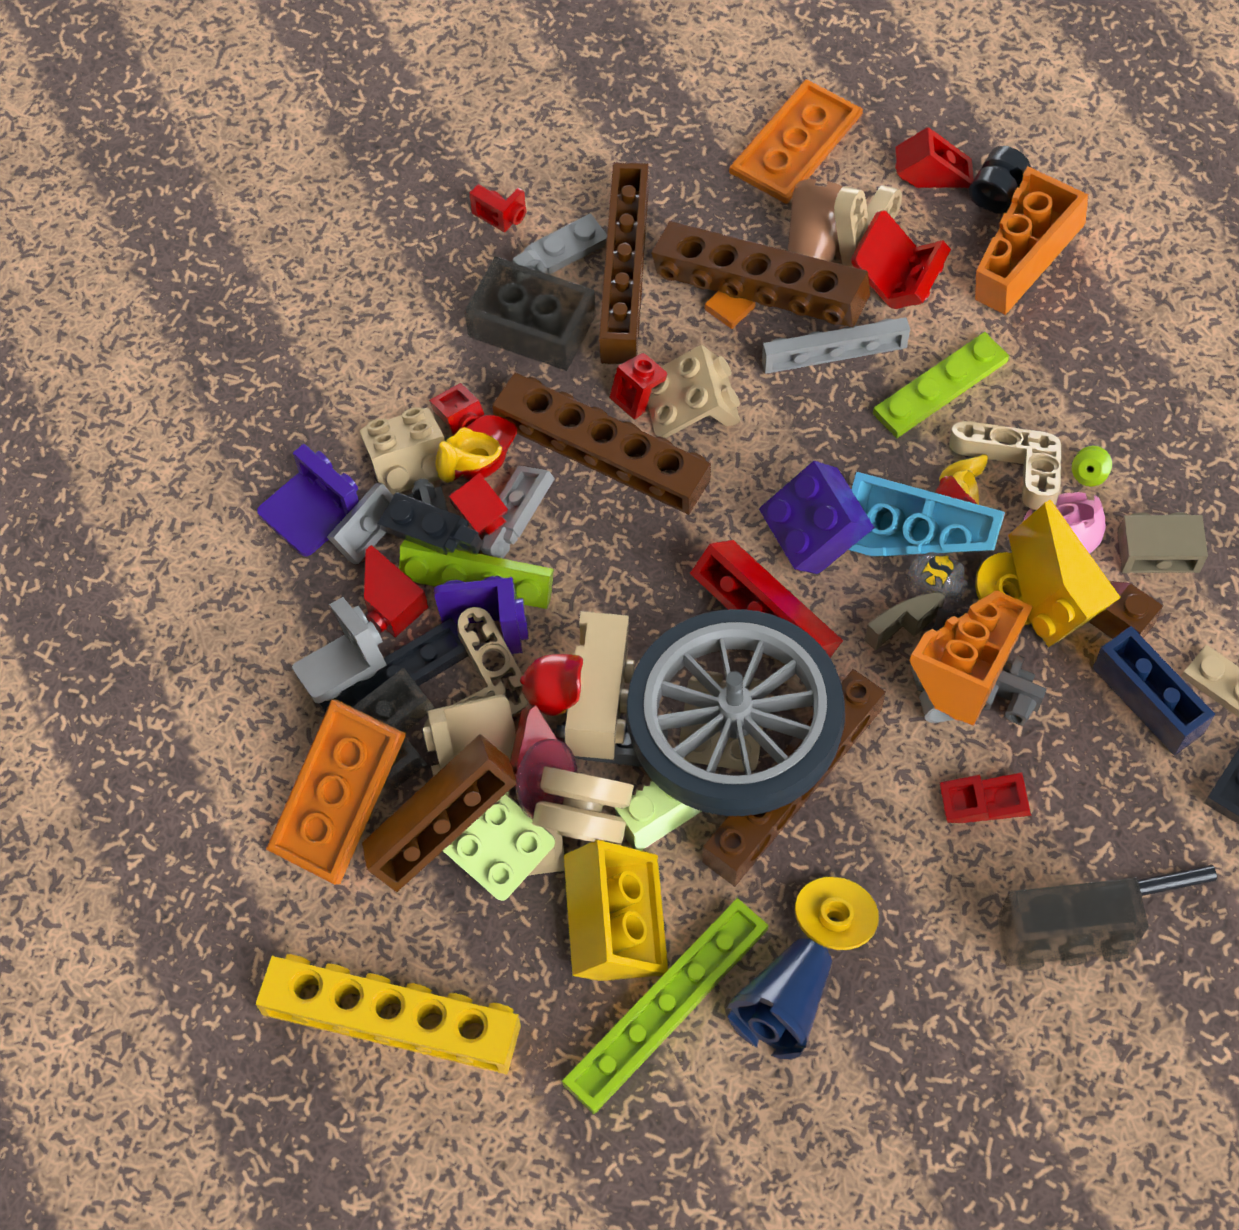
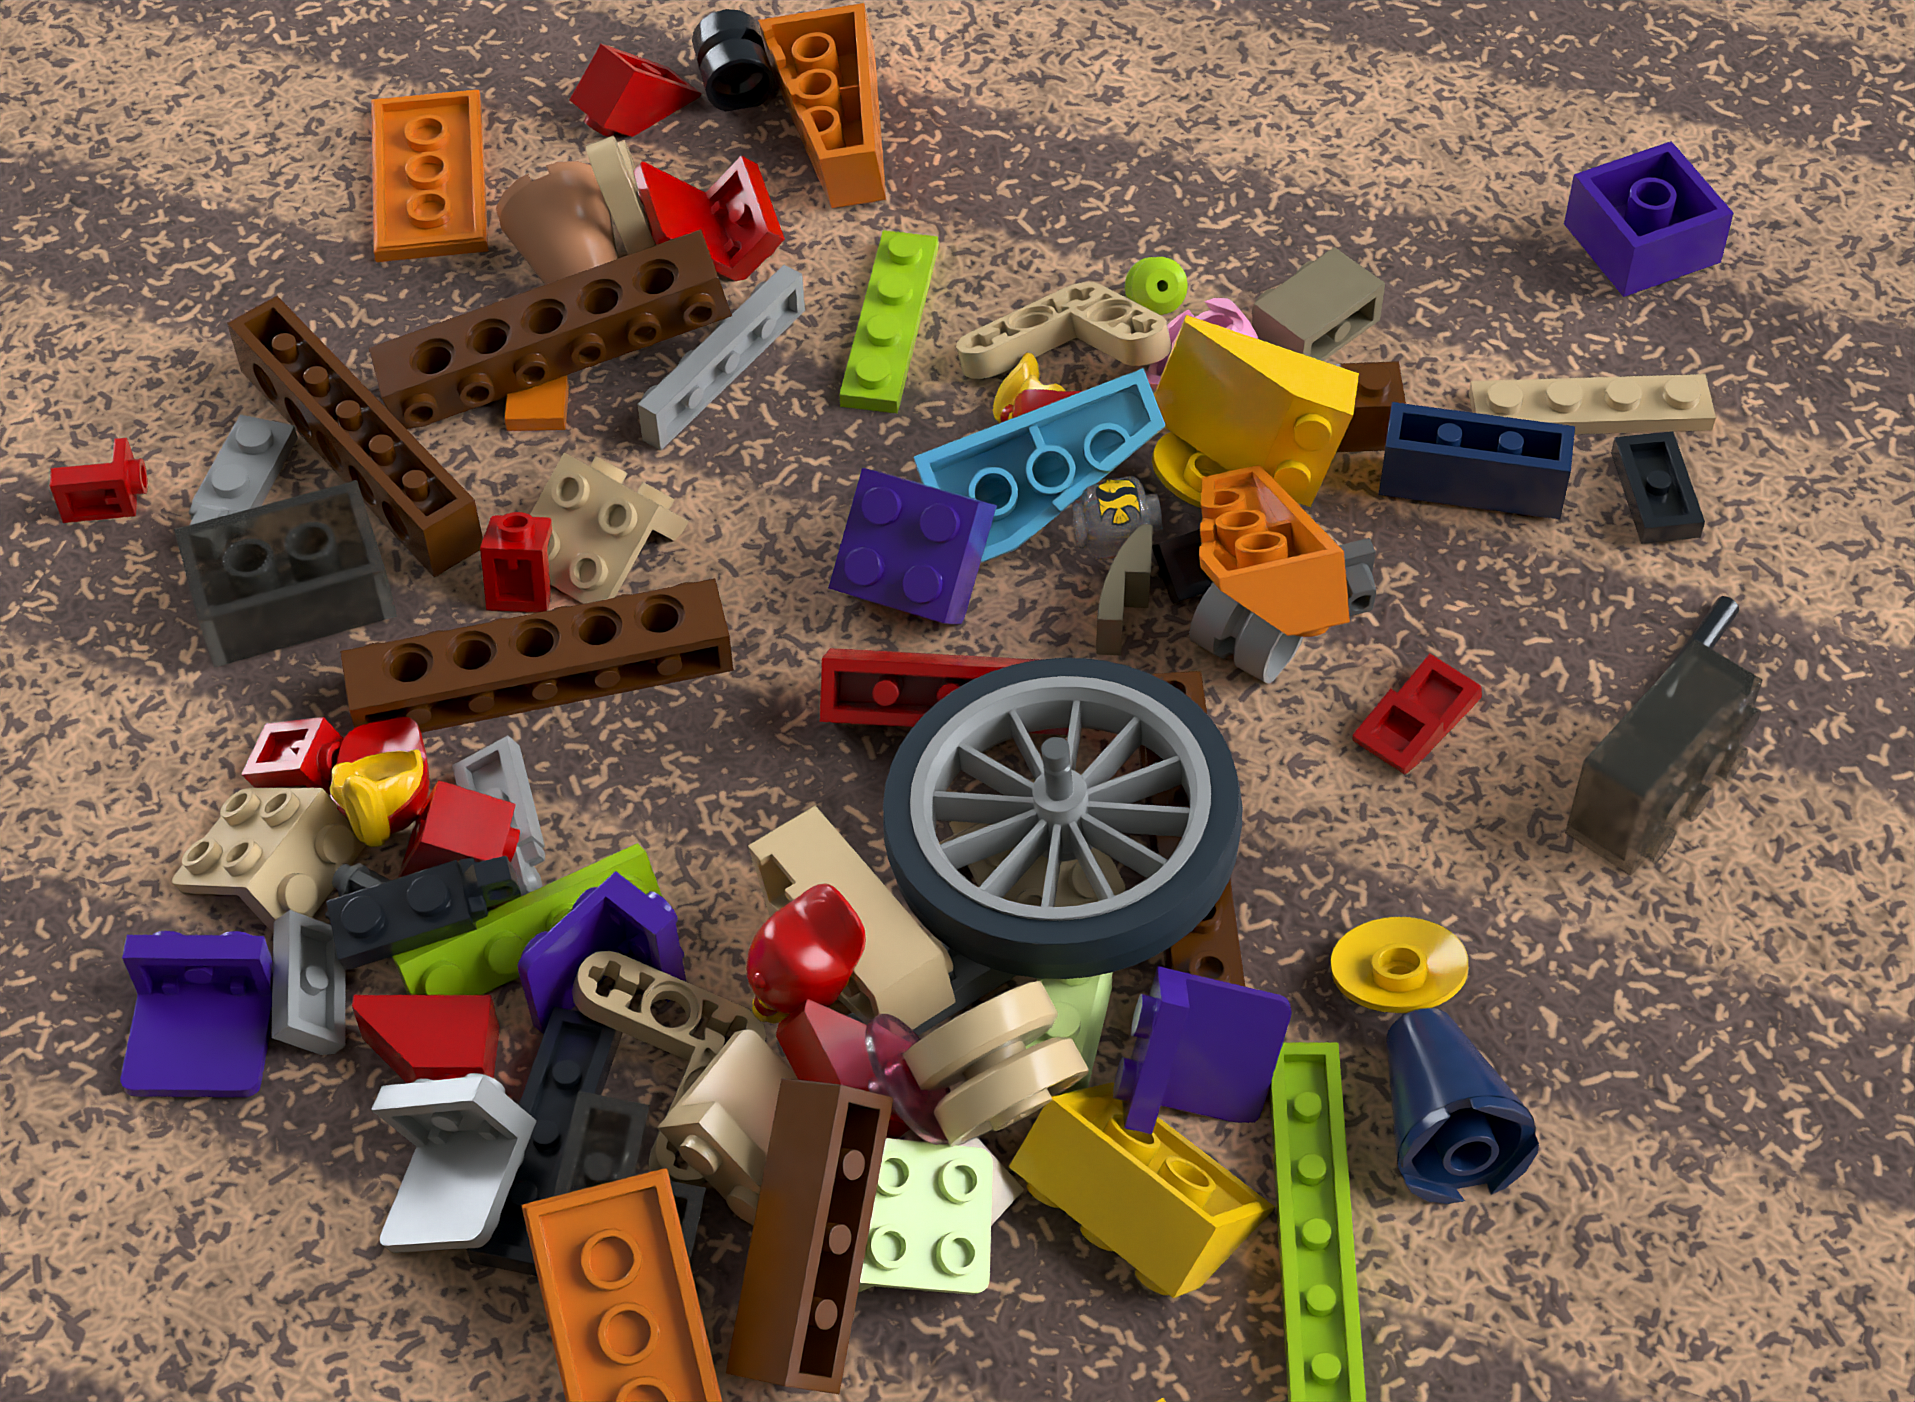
camera: 45 degrees left, 10 degrees down
(694, 873) = (1200, 1050): none -> dark purple bracket

